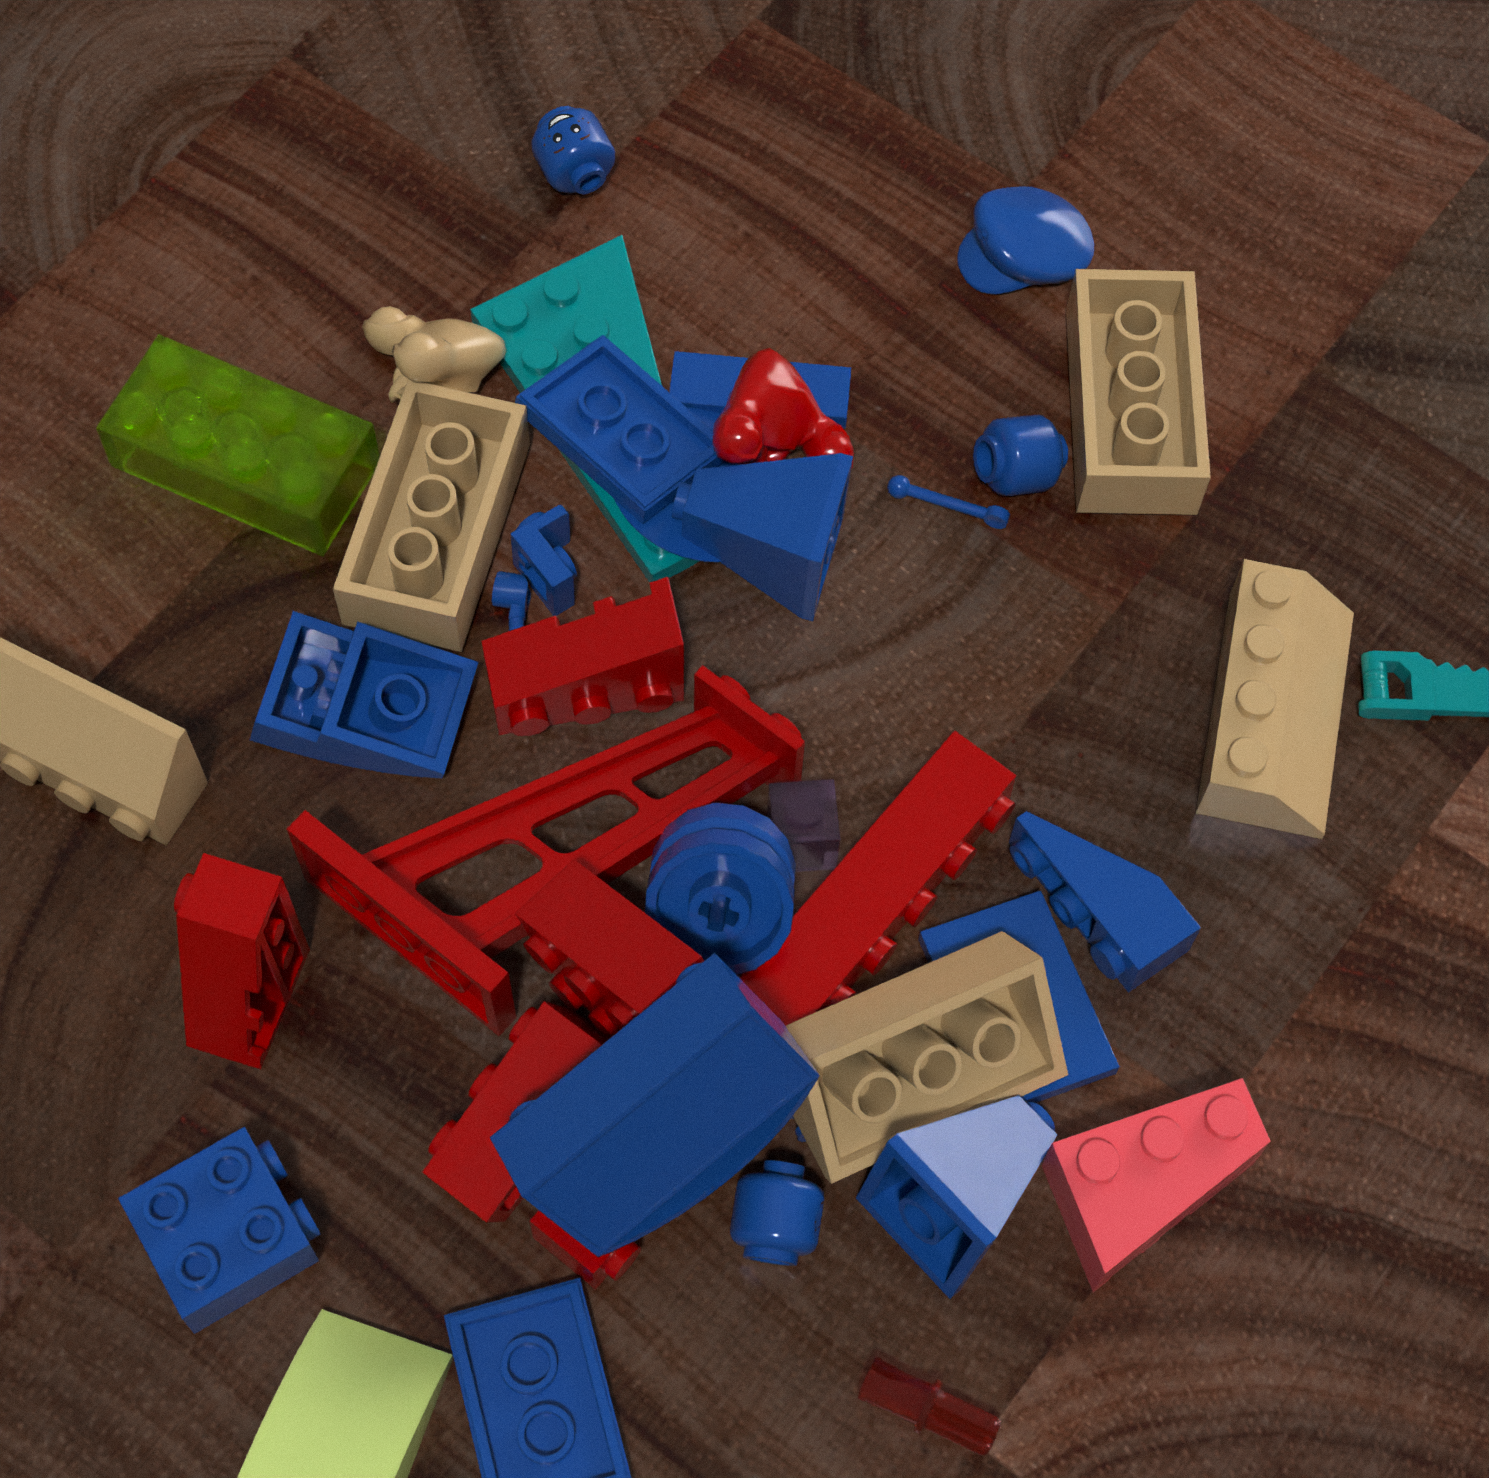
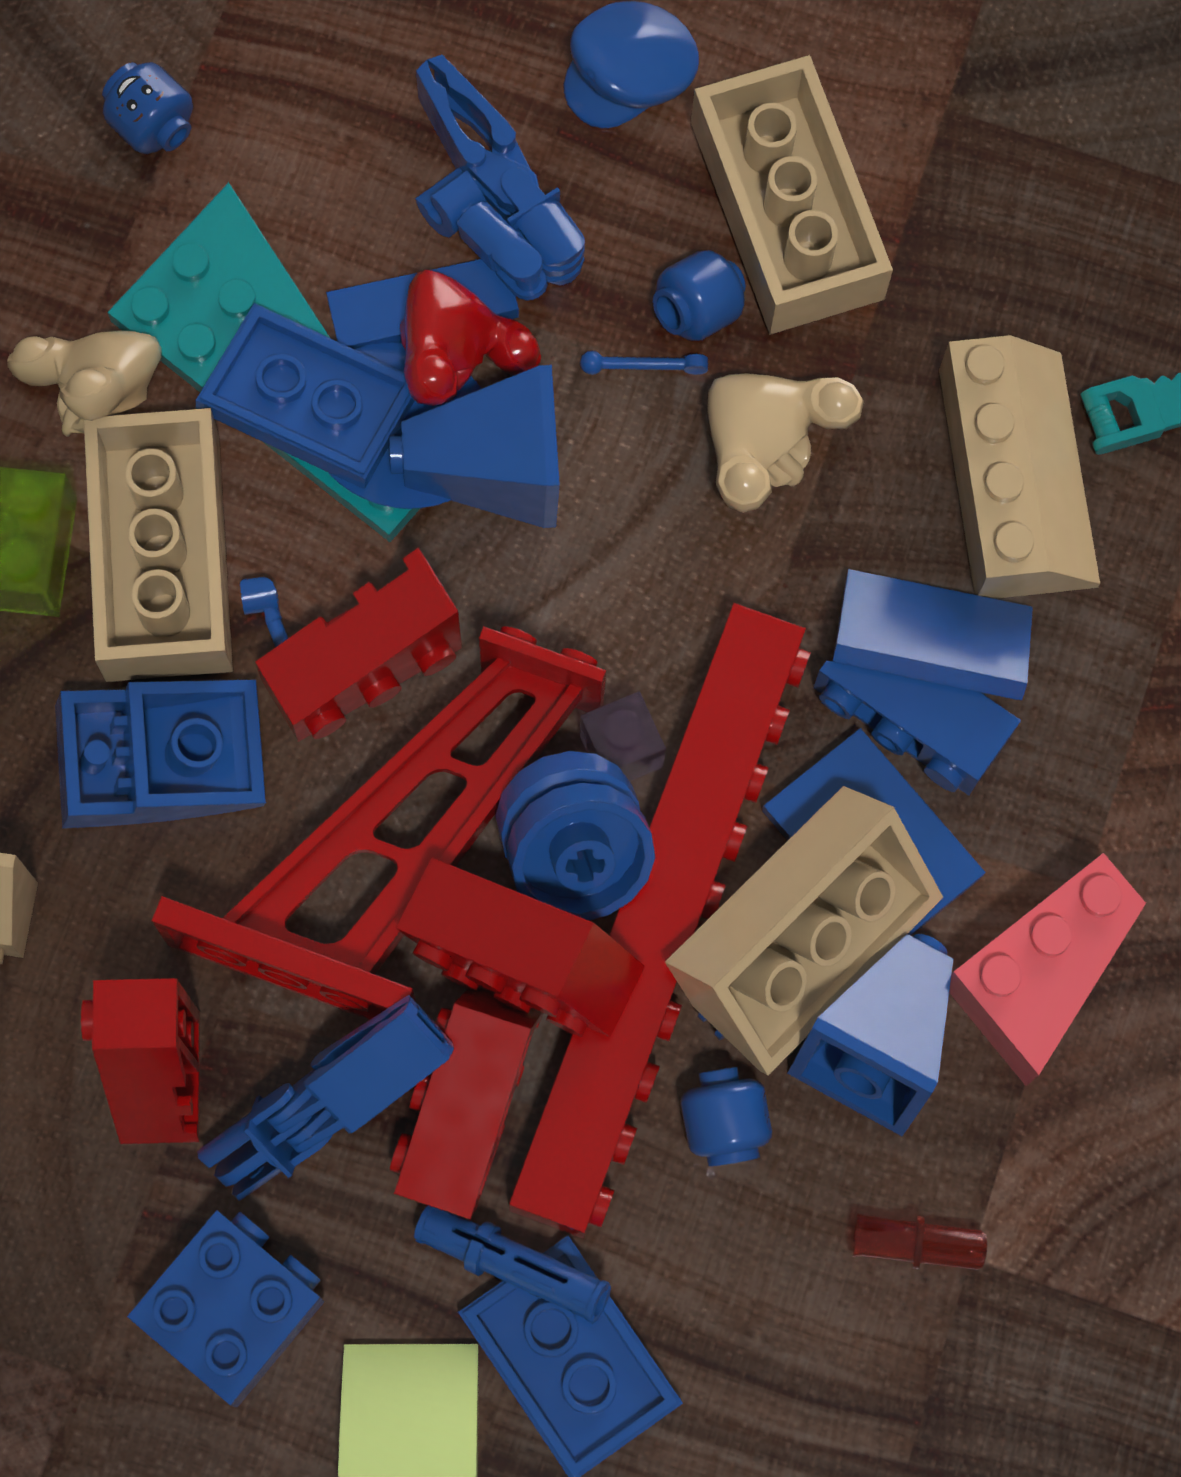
camera: 20 degrees left, 10 degrees up
(414, 1048) = (344, 1090): none -> blue arm
(493, 1263) = (488, 1251): none -> blue pin
(543, 561) = (283, 562): blue bracket -> none
(658, 1112) = (600, 1076): blue piece -> none
(827, 318) = (460, 206): none -> blue piece
(873, 299) = (503, 171): none -> blue arm
(1040, 588) = (763, 430): none -> tan head
(1141, 824) = (934, 634): none -> blue tile

